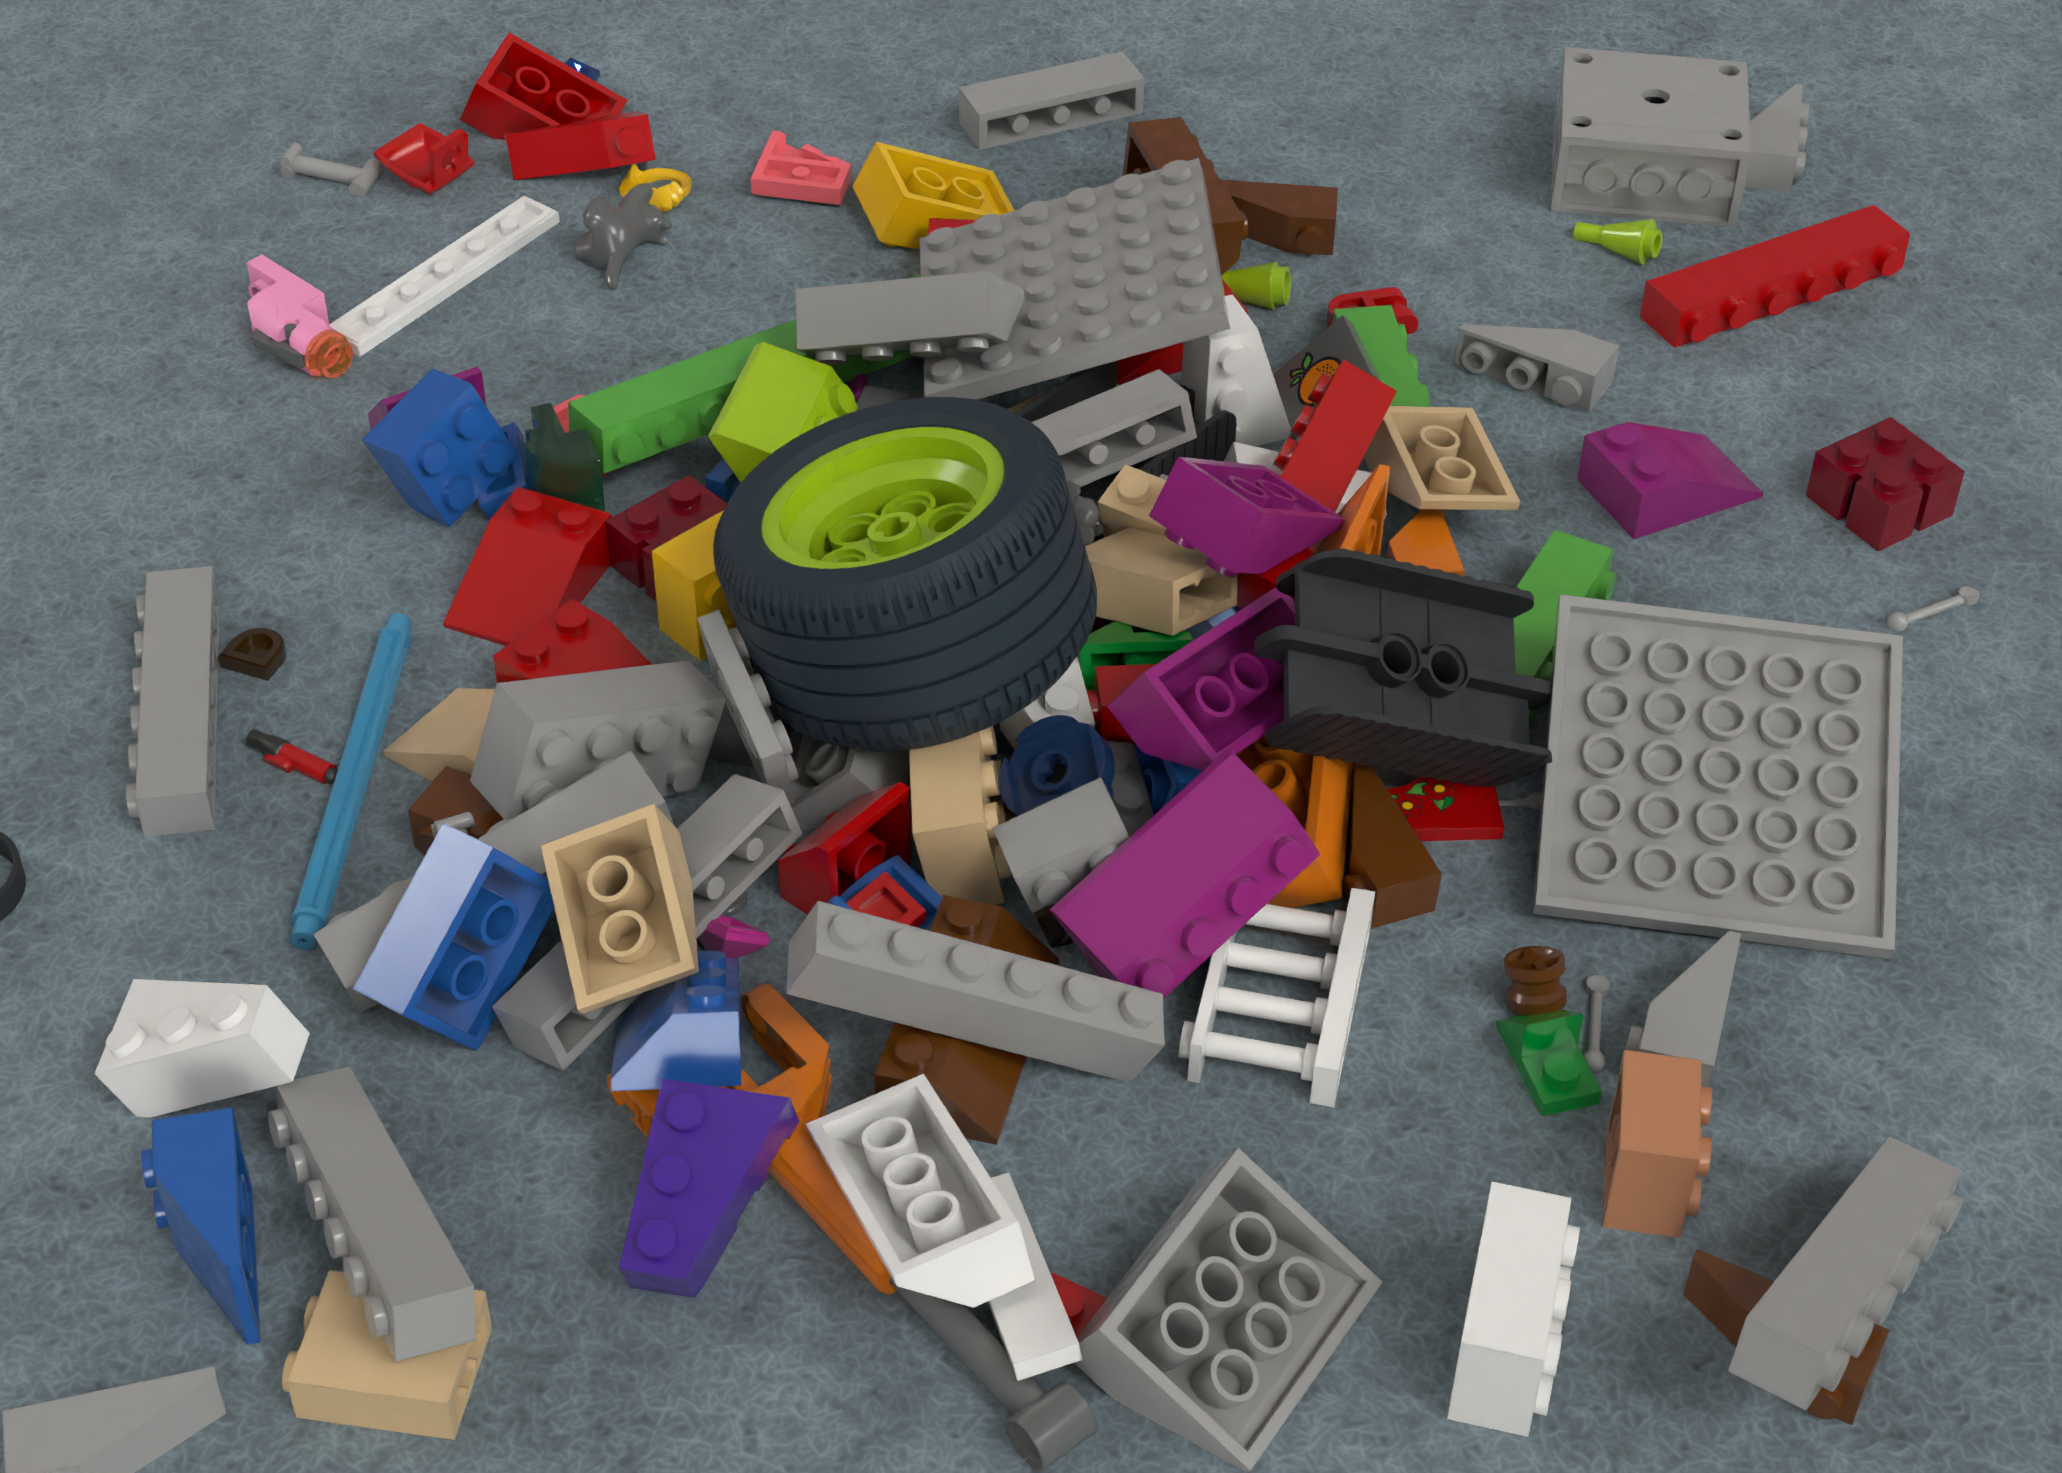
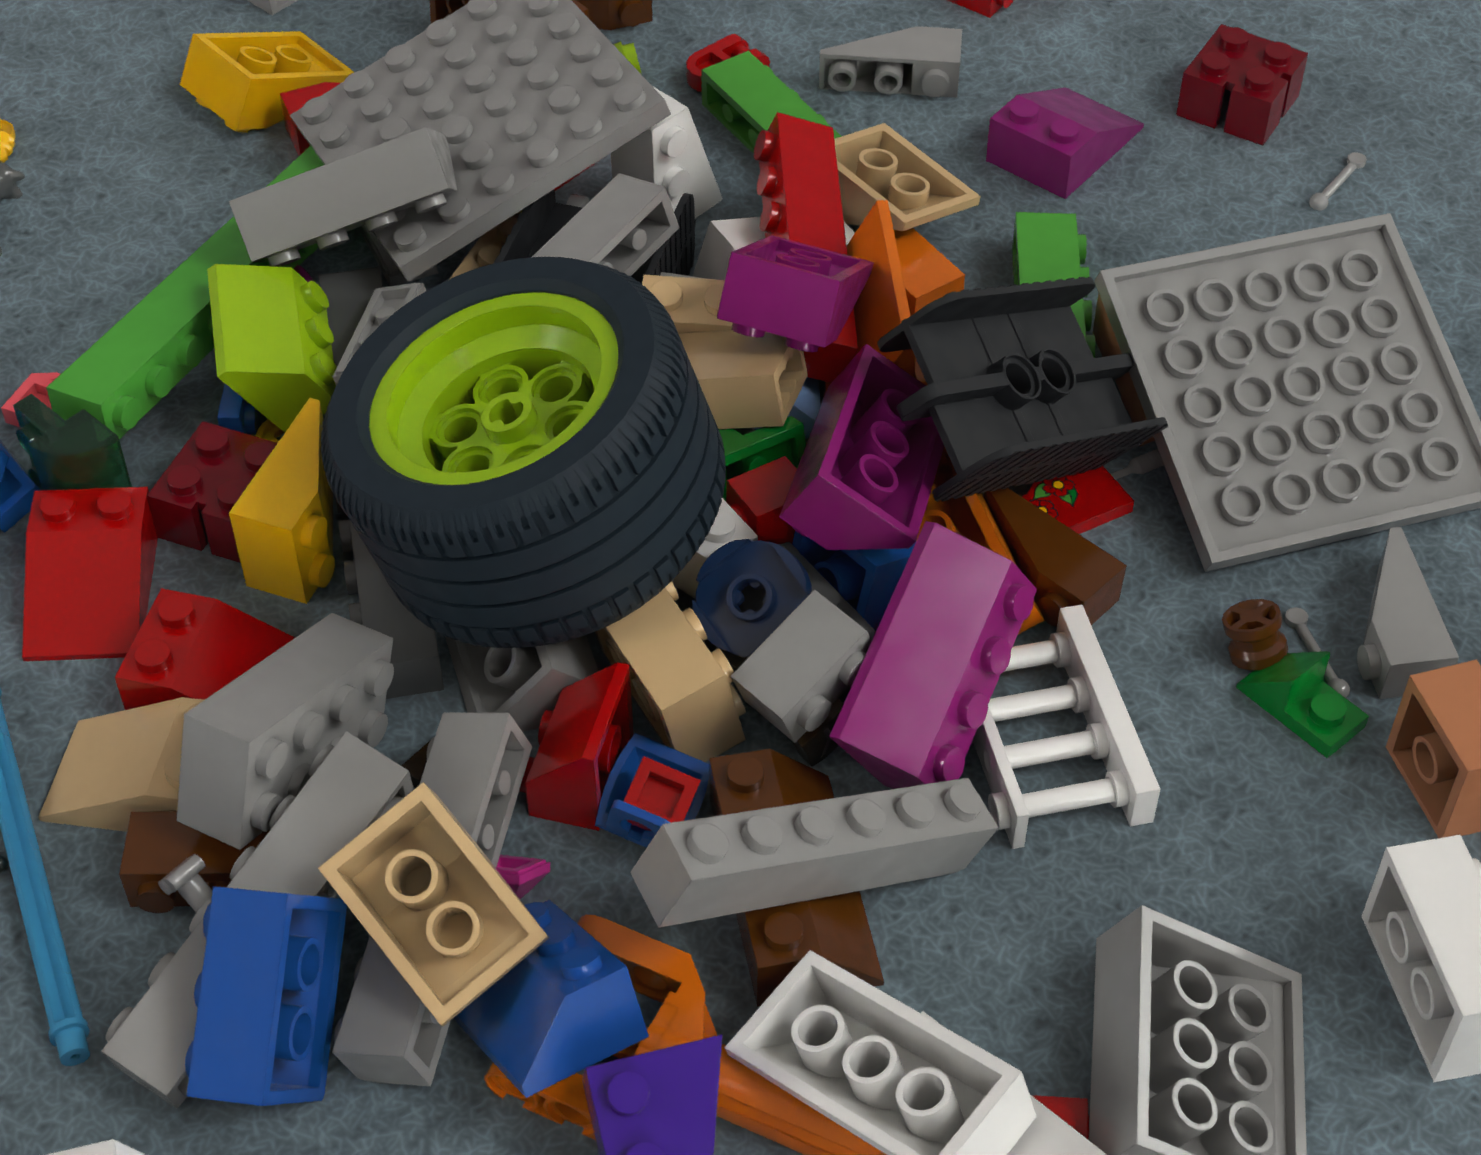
camera: 25 degrees left, 5 degrees up
(748, 704) = (422, 638): light grey plate -> none
(799, 174) = (118, 87): coral wing -> none
(1321, 355) = (728, 131): dark grey tile -> none

